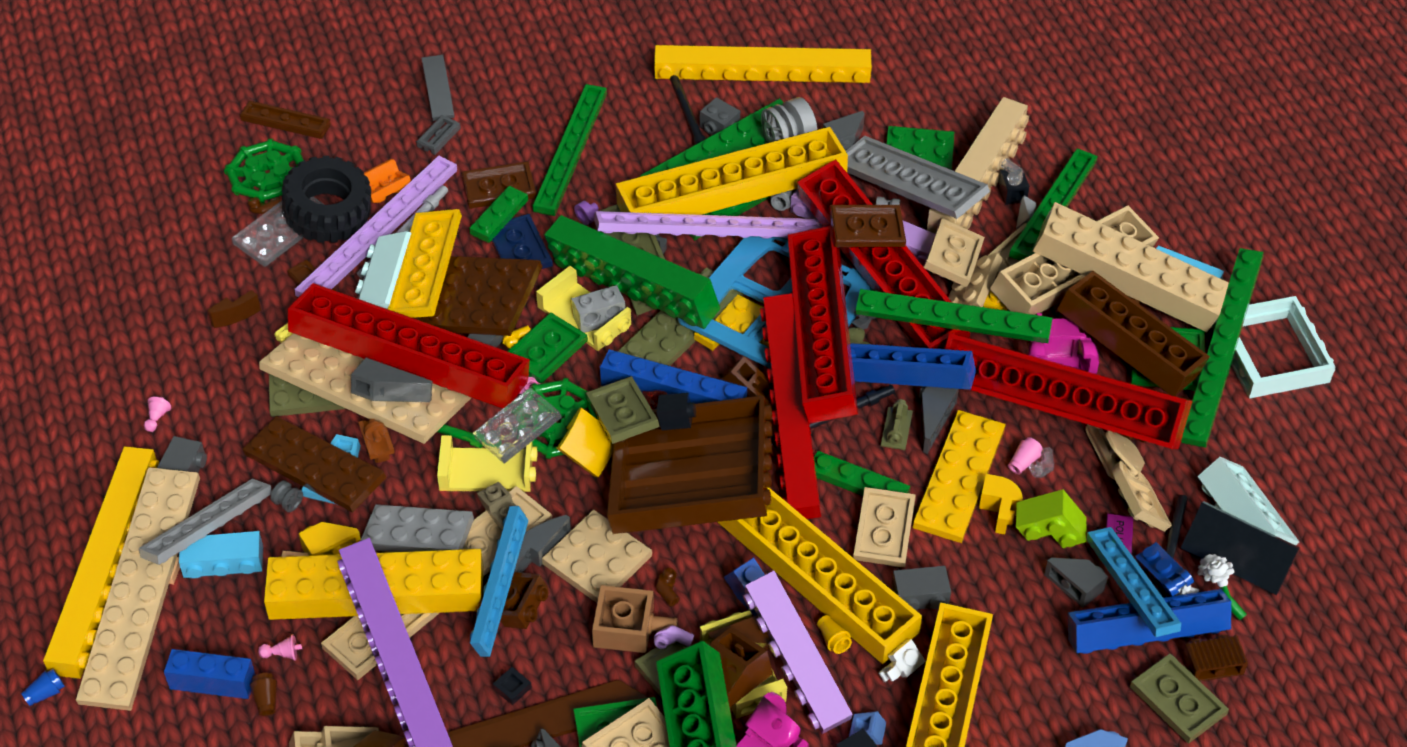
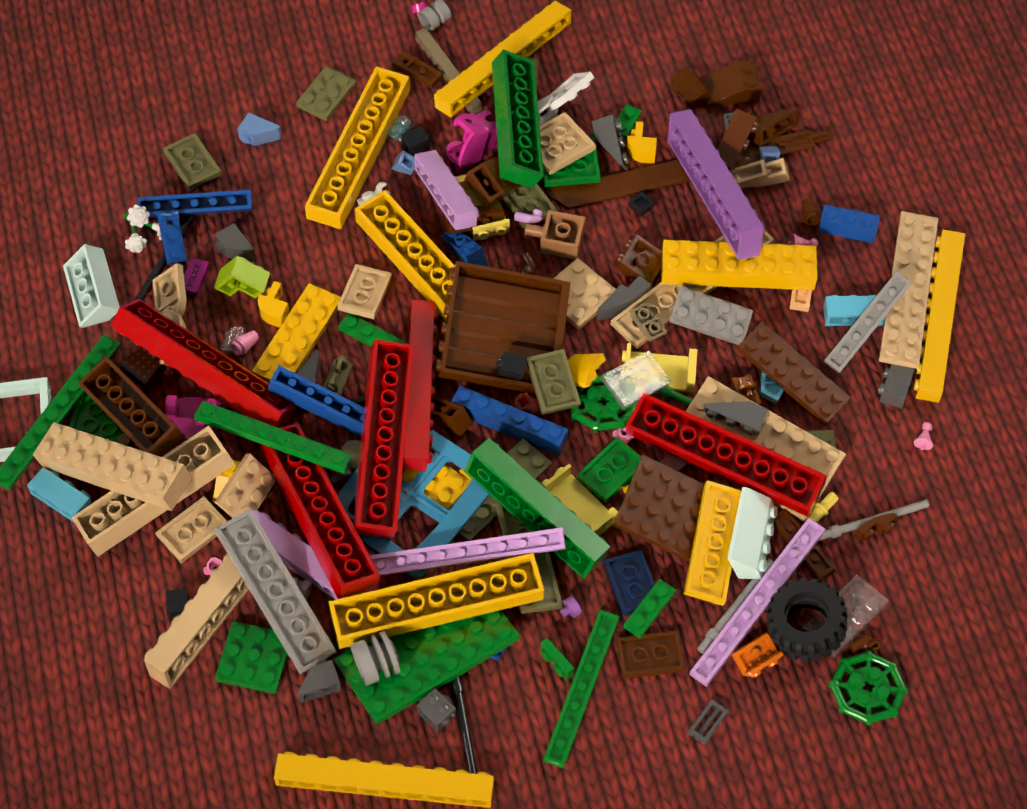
camera: 175 degrees left, 10 degrees up
(43, 687) = (963, 226): blue cone -> none
(280, 307) = (836, 531): none -> light grey bar
(285, 119) = (858, 754): reddish brown tile -> none
(285, 495) = (811, 352): dark grey wheel -> none
(327, 538) = (777, 313): yellow slope -> none
(437, 87) = (711, 776): dark grey slope -> none
(499, 581) = (648, 262): dark azure plate -> none
(597, 308) = (571, 491): light grey brick -> none
(598, 167) = (560, 663): none -> green plate
(836, 637) = (417, 216): yellow cone -> none
(867, 226) = (327, 516): reddish brown tile -> none
(922, 586) = (348, 246): dark grey brick -> none
(954, 252) = (261, 496): tan plate -> none
(984, 225) = (211, 564): none -> bright pink plate
(1015, 172) = (175, 598): clear arm -> none
(1026, 211) = (176, 570): light grey slope -> none
(1062, 193) = (148, 572): green plate -> none
(1134, 582) = (200, 218): dark azure plate -> none
(1215, 658) = (158, 182): reddish brown brick -> none
(1253, 551) = (111, 249): black tile -> none

